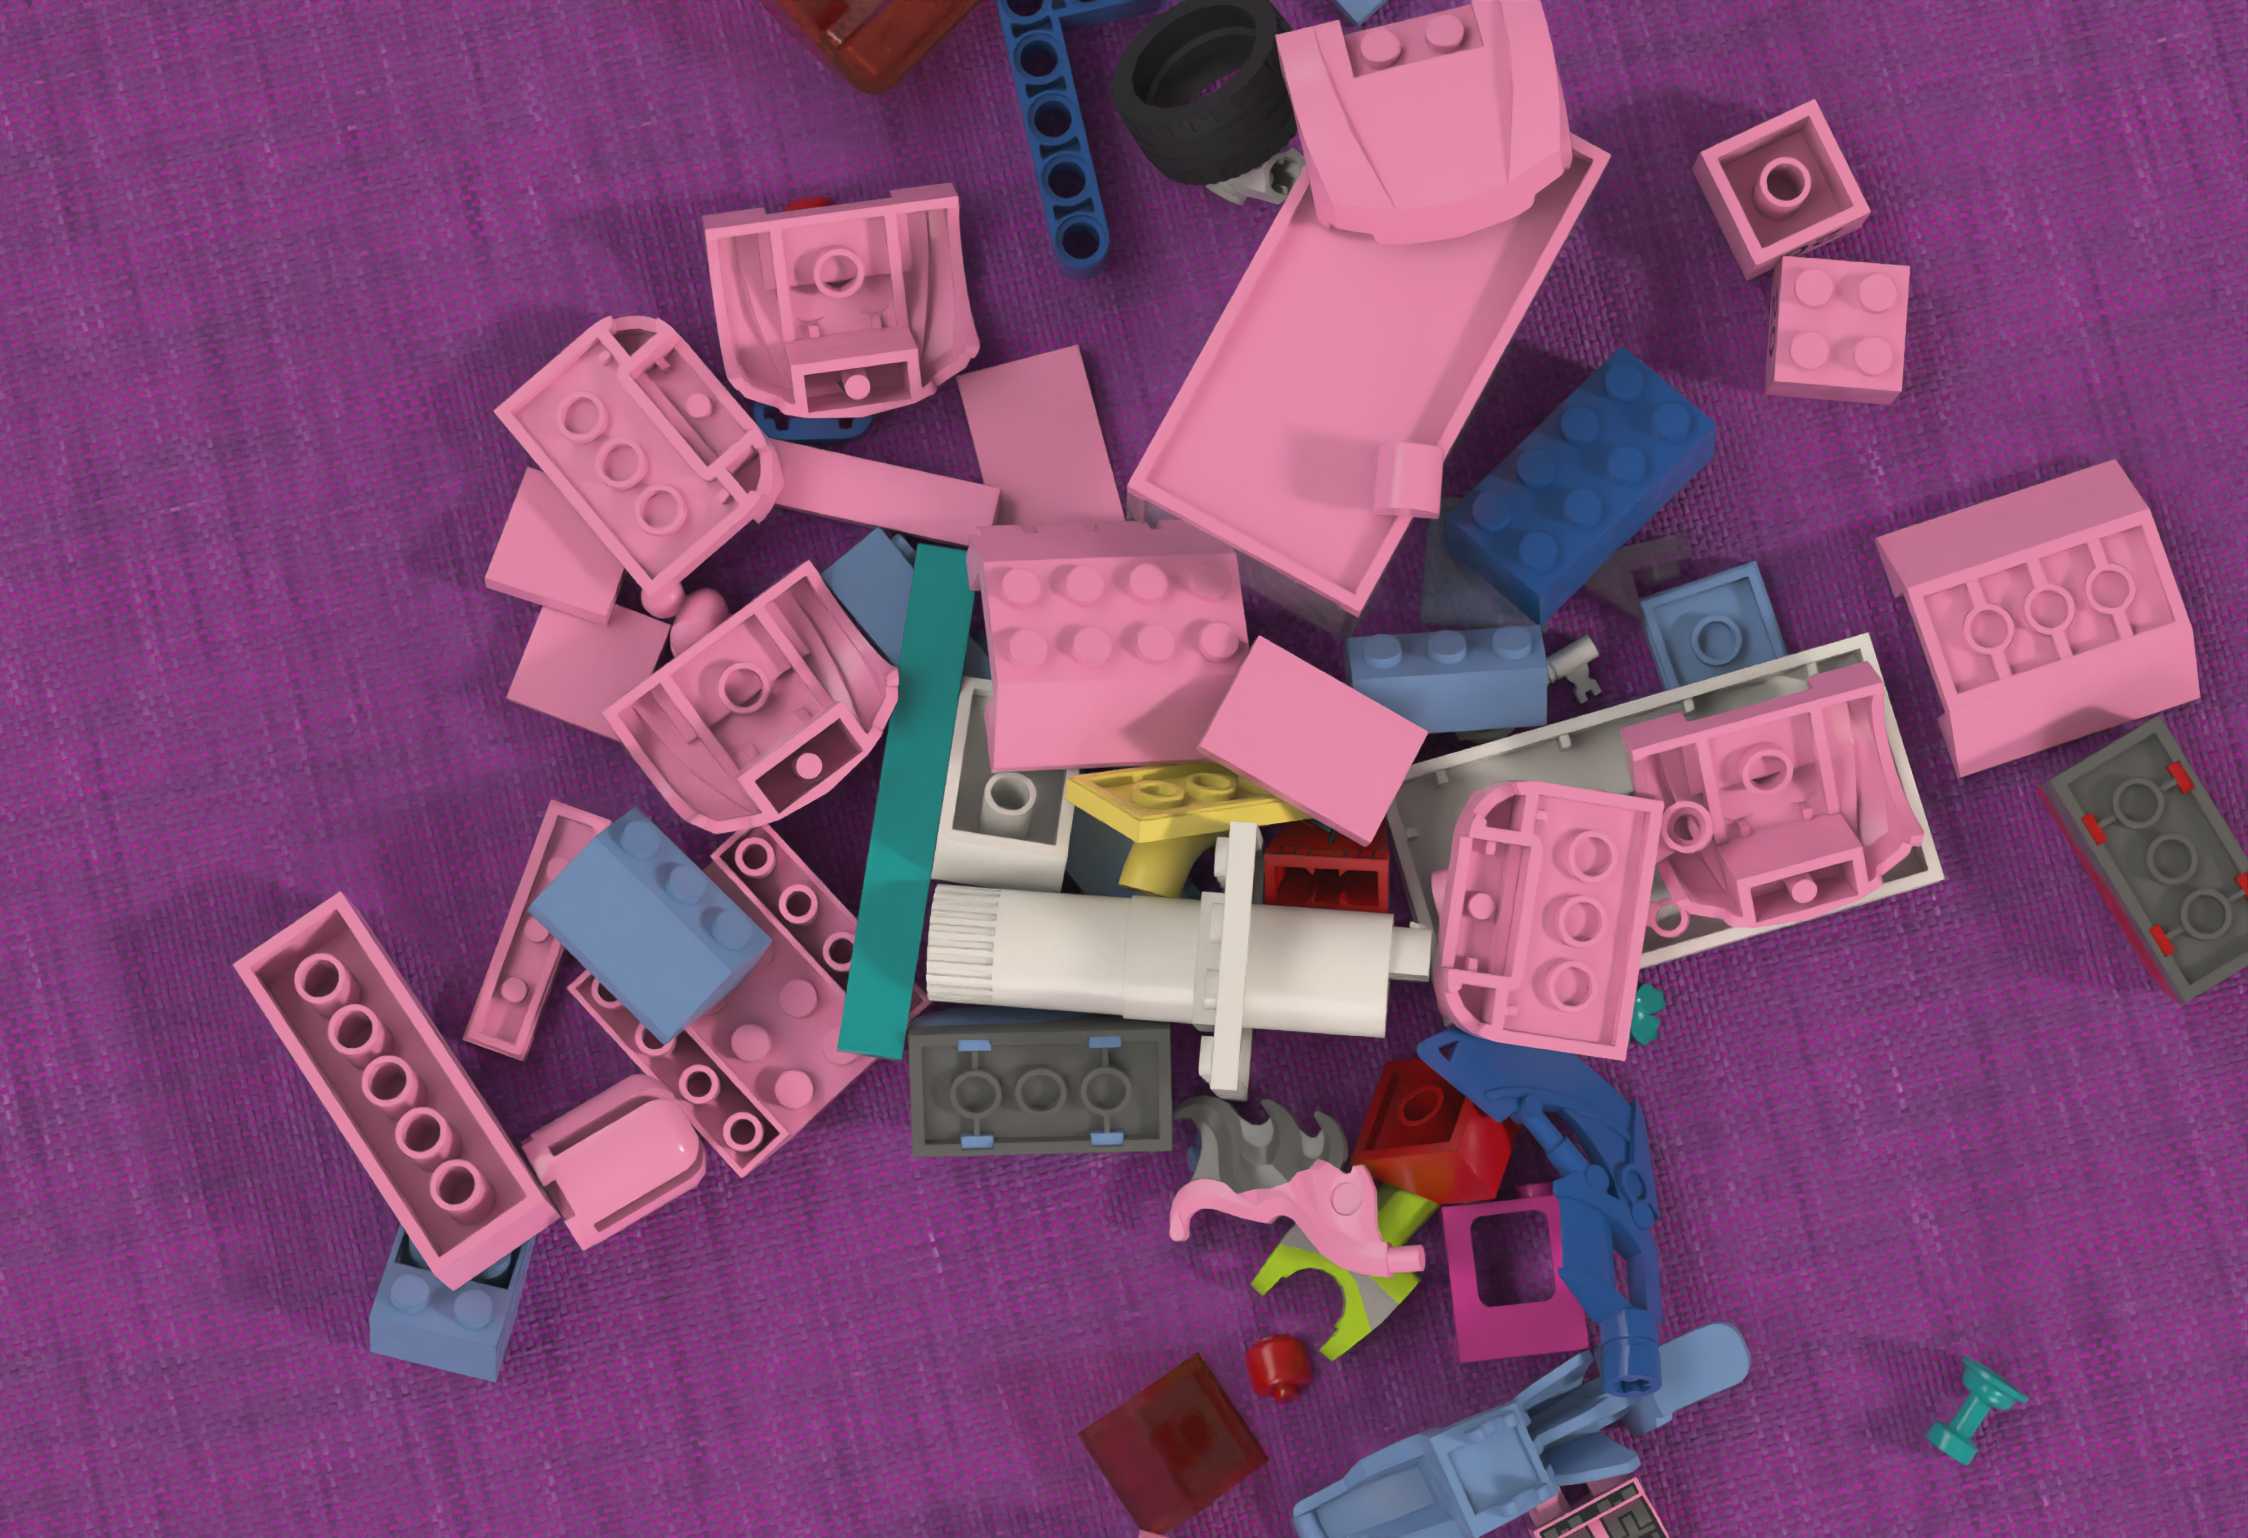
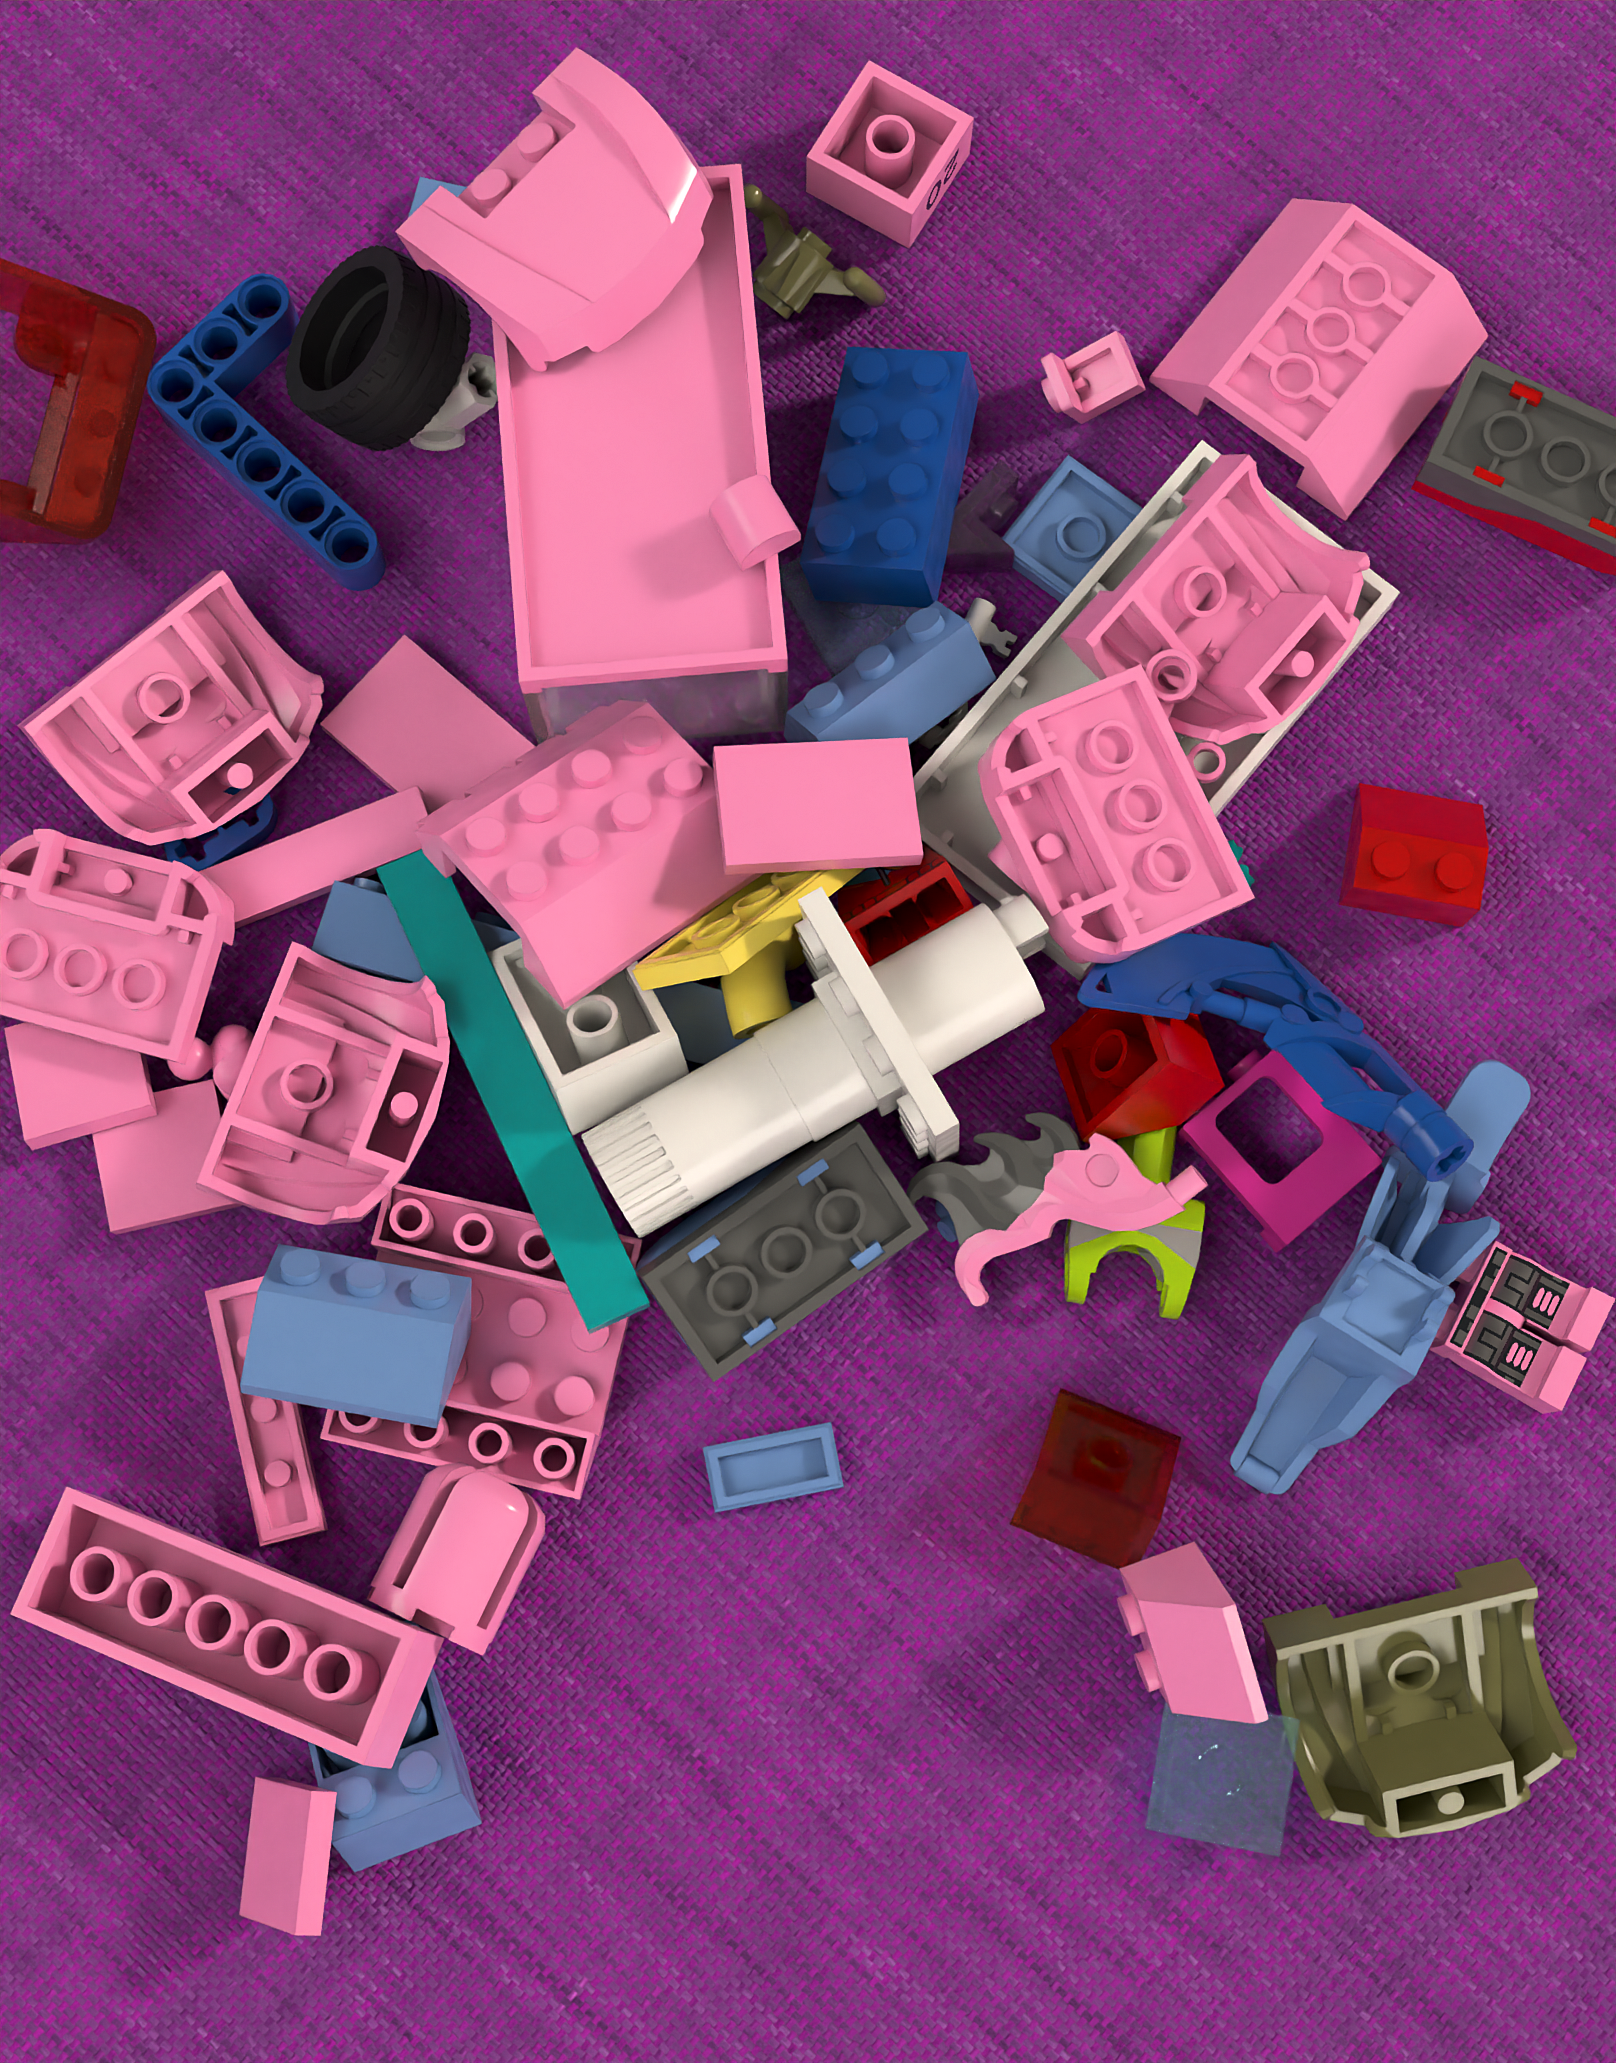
camera: 35 degrees left, 5 degrees down
(328, 1302) = (288, 1855): none -> bright pink tile
(918, 1256) = (773, 1467): none -> medium blue tile
(1279, 1367) = (1135, 1355): red piece -> none
(1637, 235) = (798, 264): none -> olive piece
(1809, 1107) = (1415, 856): none -> red slope
(1821, 507) = (1092, 378): none -> bright pink bracket
(1837, 330) = (1008, 235): bright pink brick -> none

